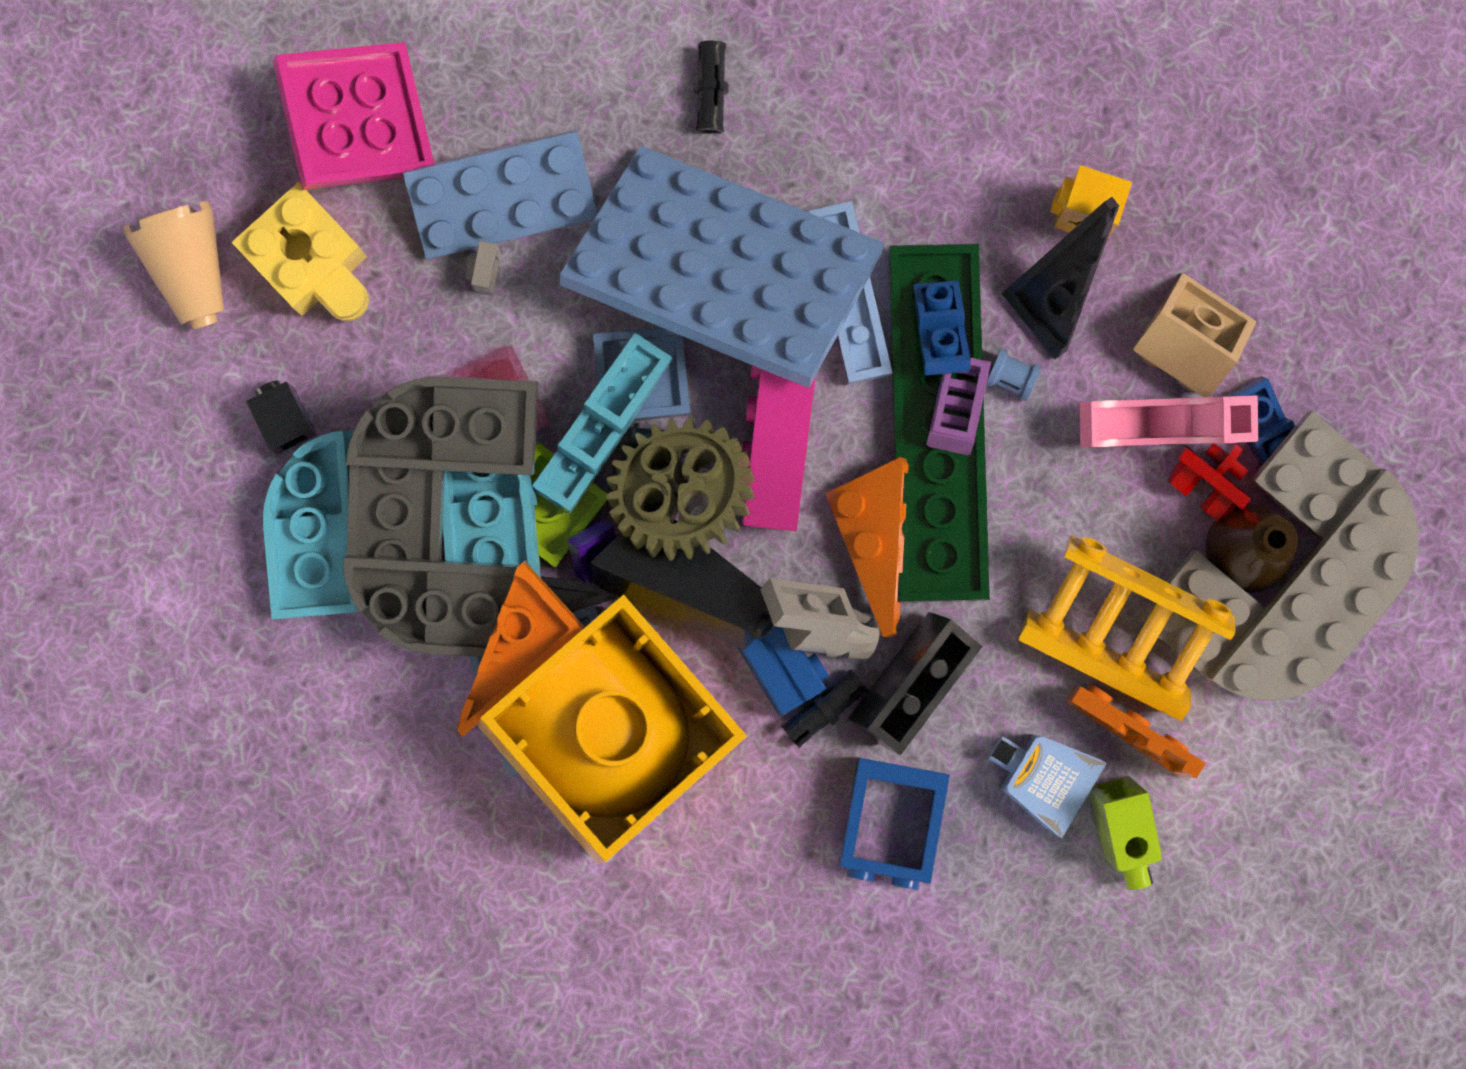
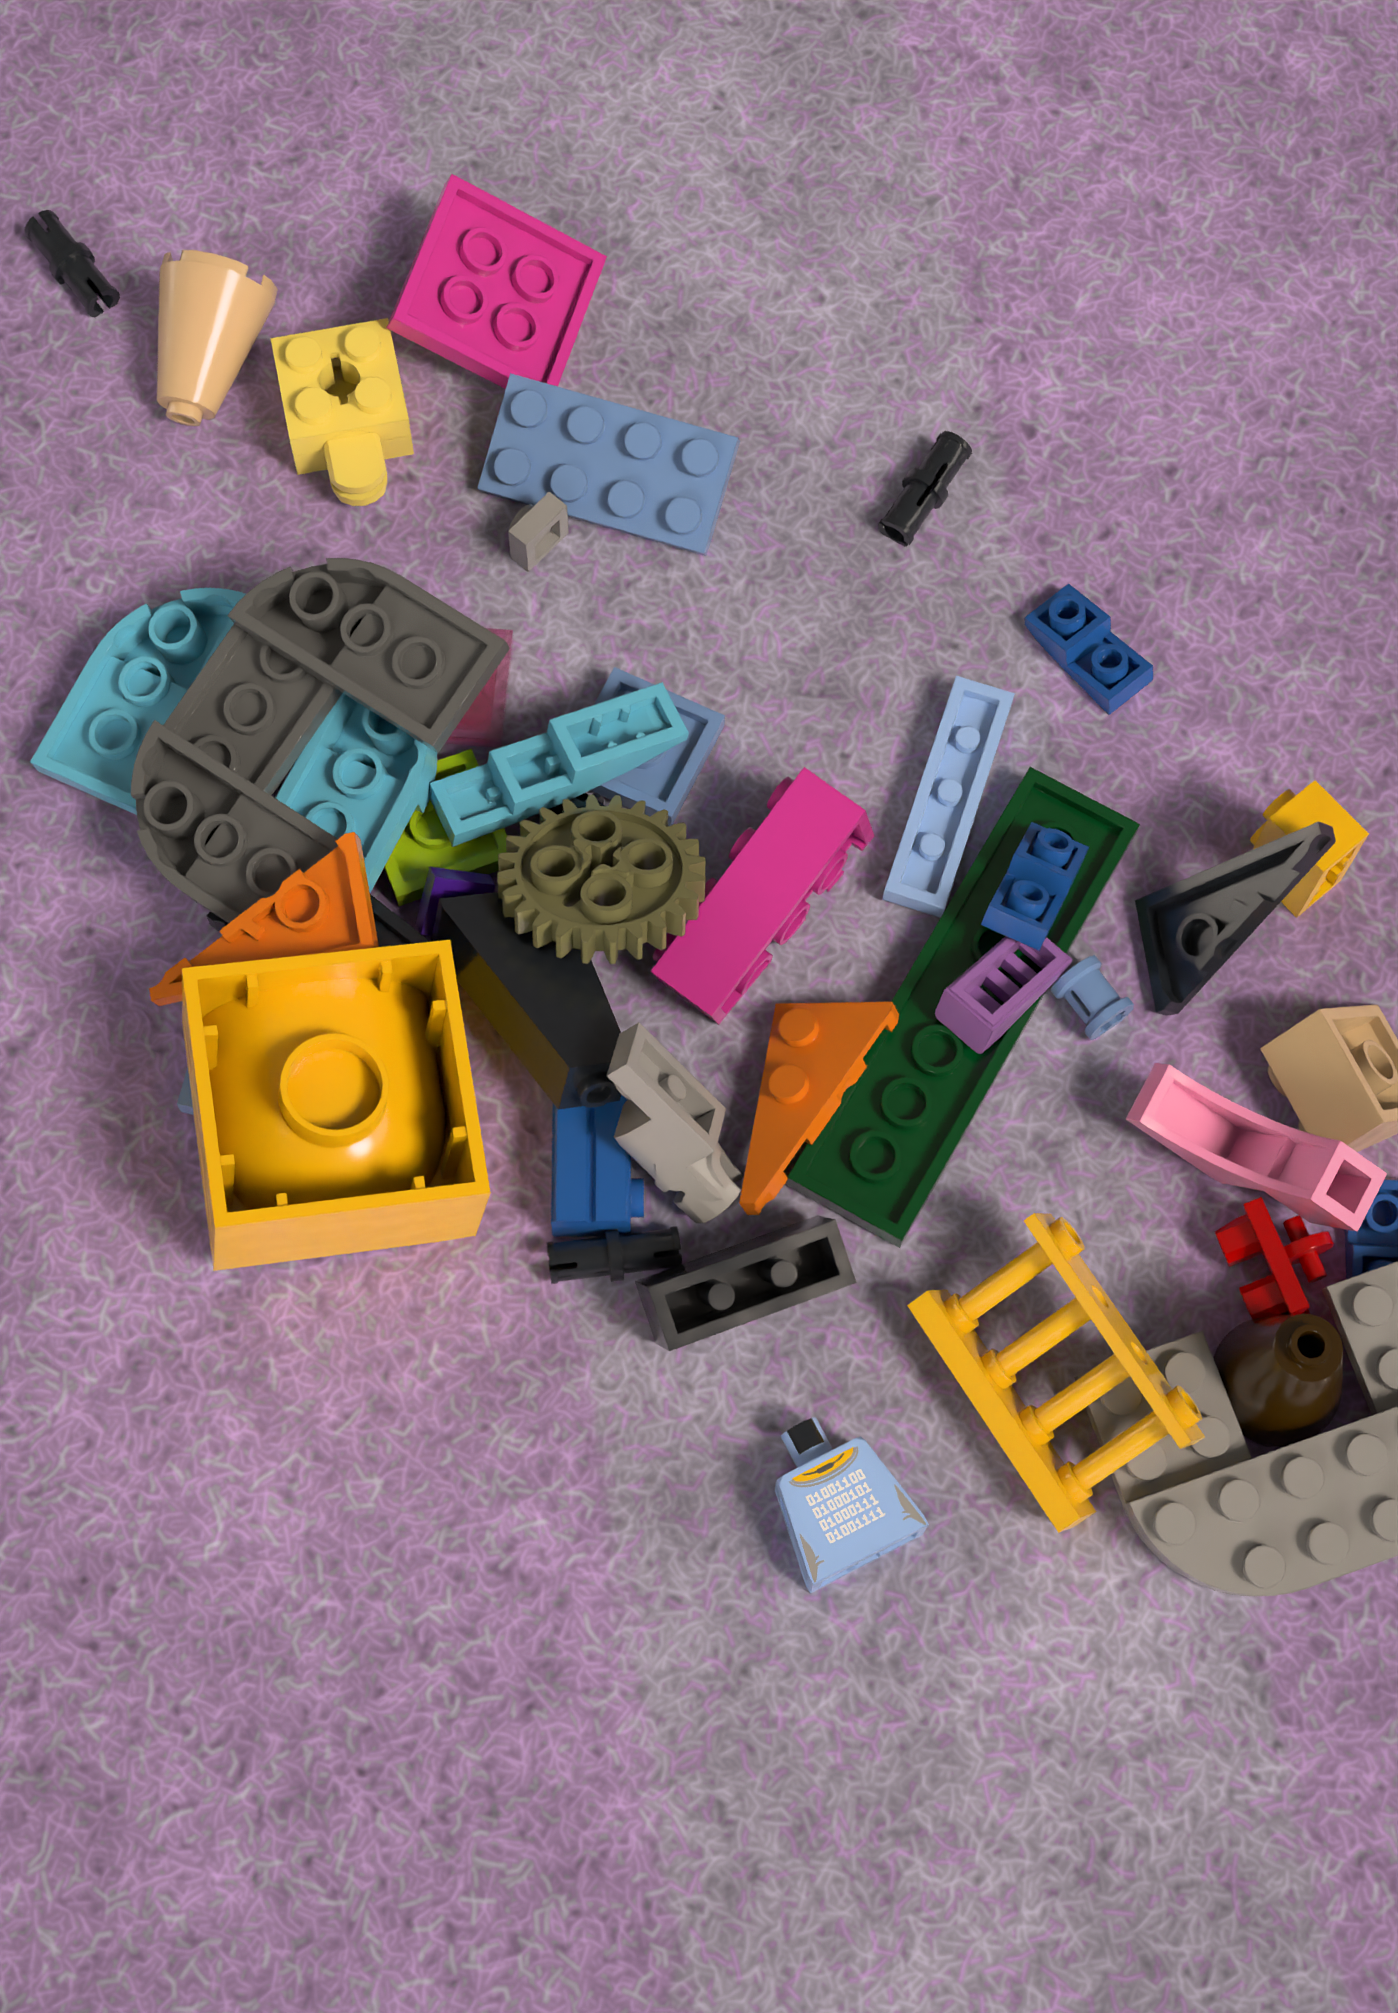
camera: 30 degrees right, 15 degrees down
(54, 256) = (71, 263): none -> black pin
(280, 416) = (196, 552): black brick -> none
(723, 265) = (814, 667): medium blue plate -> none
(876, 138) = (1082, 643): none -> blue slope
(901, 875) = (658, 1390): blue window -> none
(1125, 814) = (910, 1600): lime torso -> none
(1135, 731) = (989, 1511): orange wing -> none

